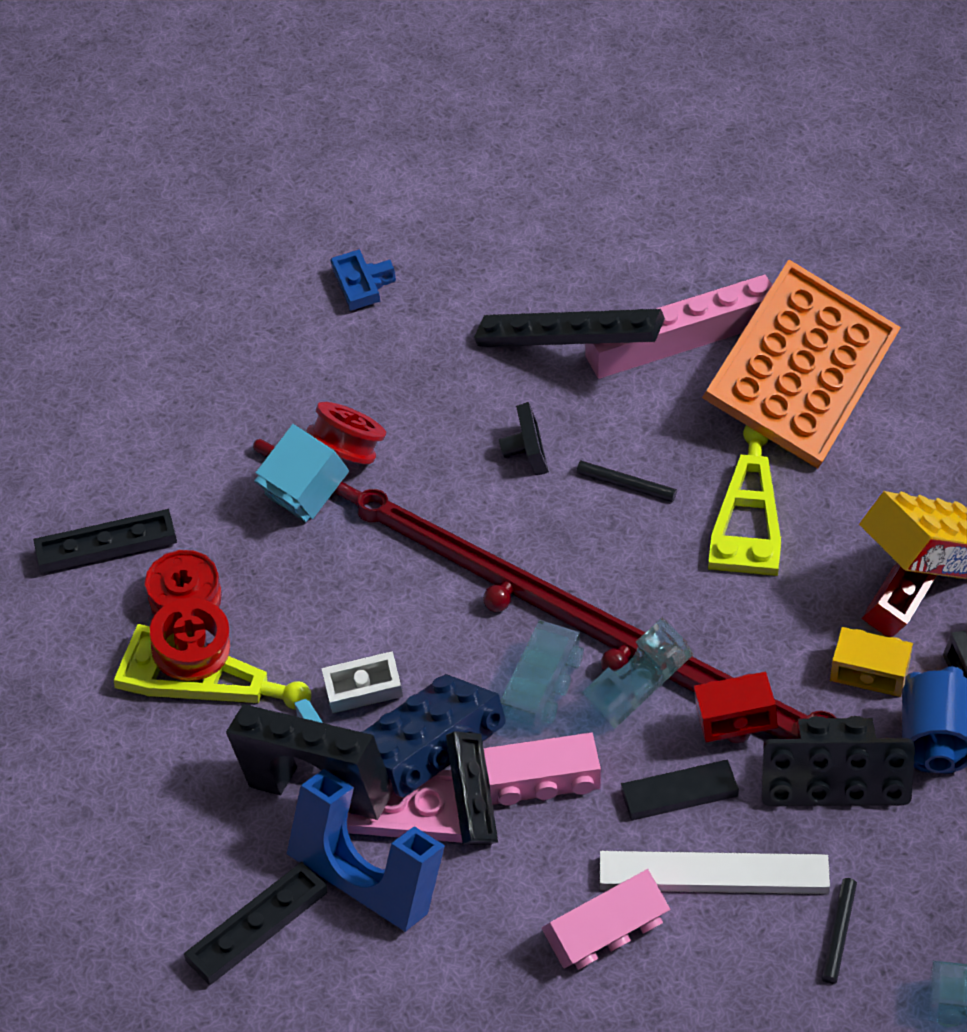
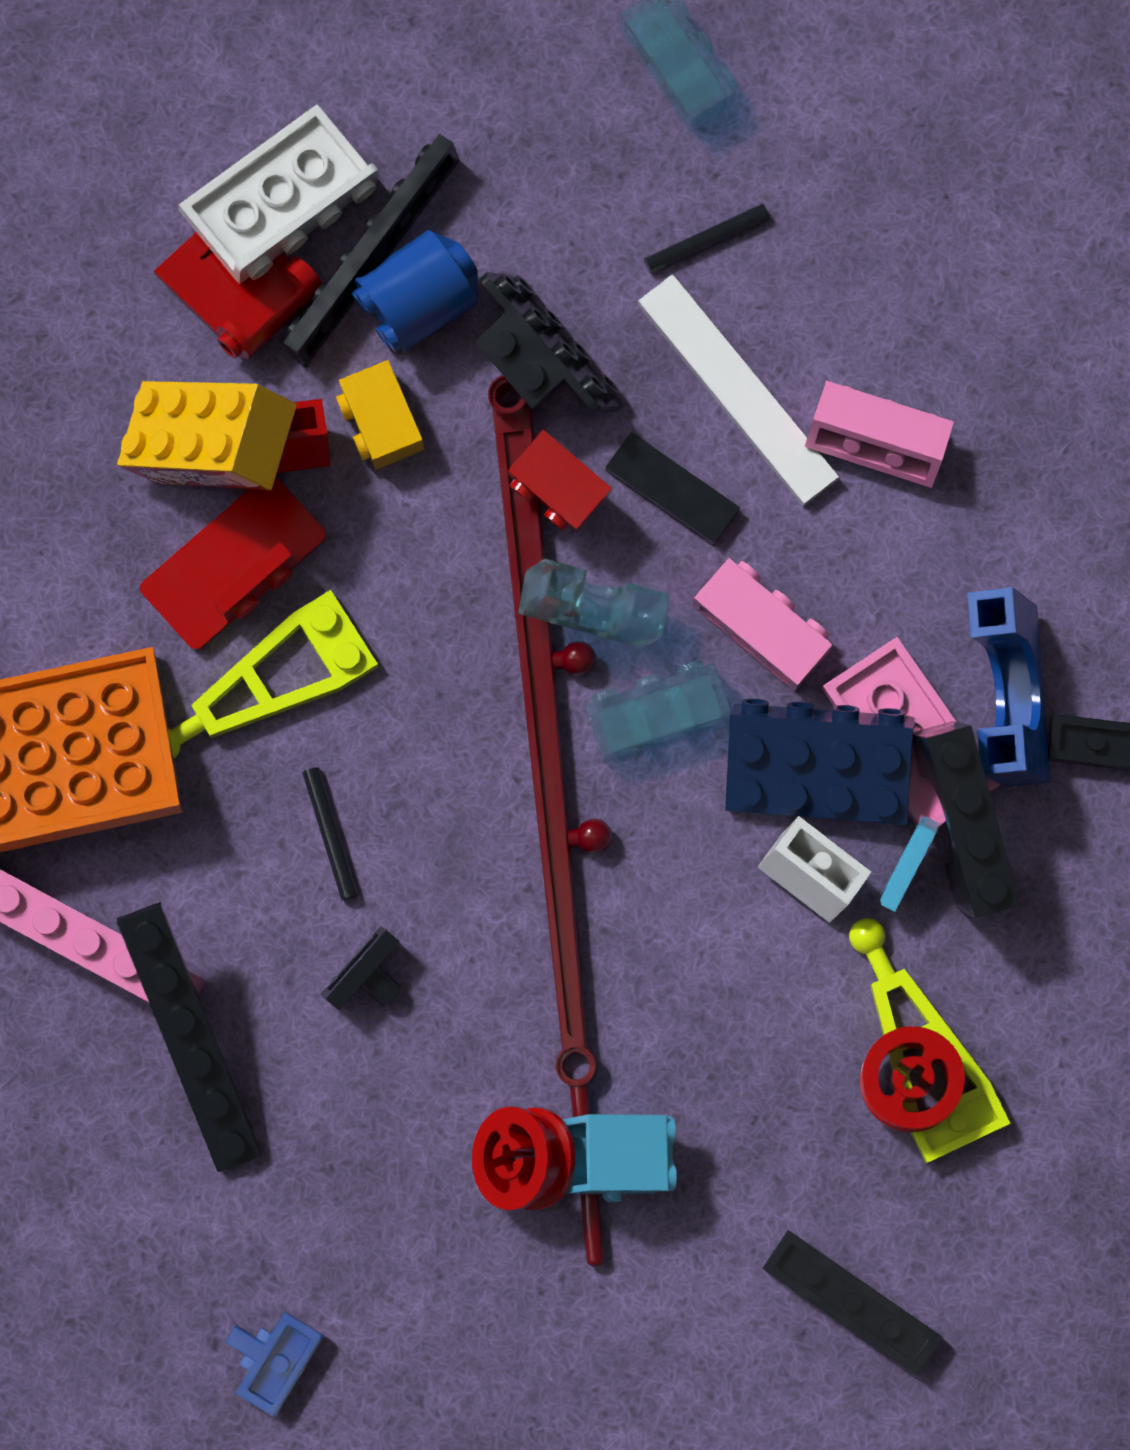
camera: 130 degrees left, 30 degrees up
(182, 576) = (868, 1173): red wheel -> none
(471, 788) = (848, 660): black tile -> none
(840, 550) = (233, 563): none -> red bracket

